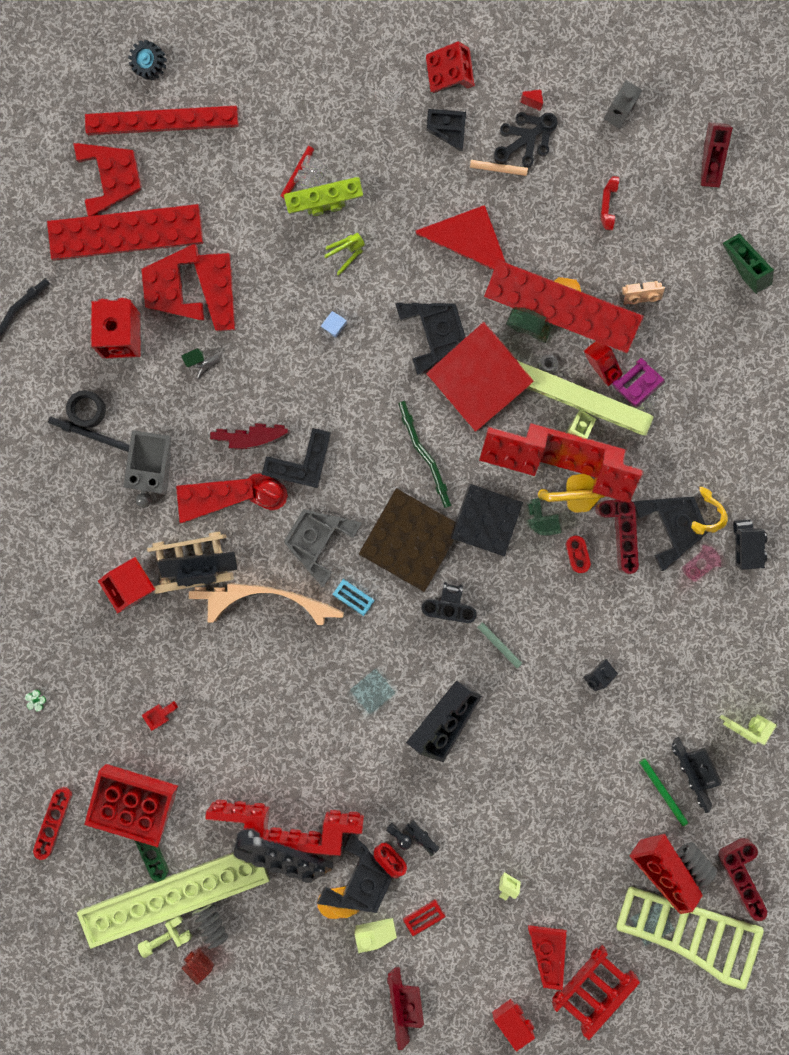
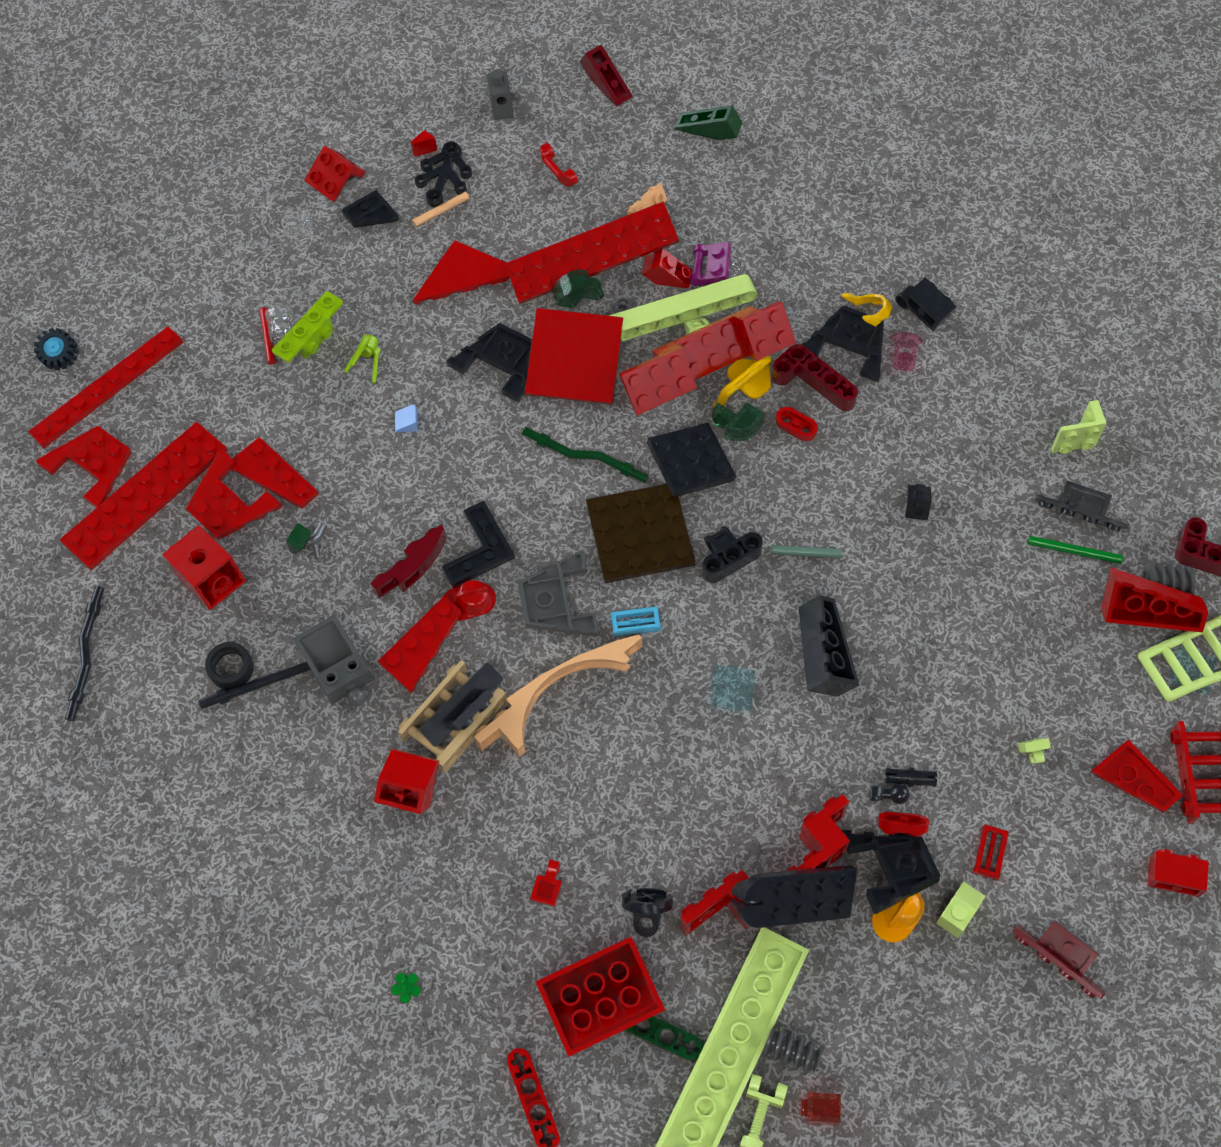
camera: 40 degrees left, 25 degrees down
(202, 778) = (648, 904): none -> black tile

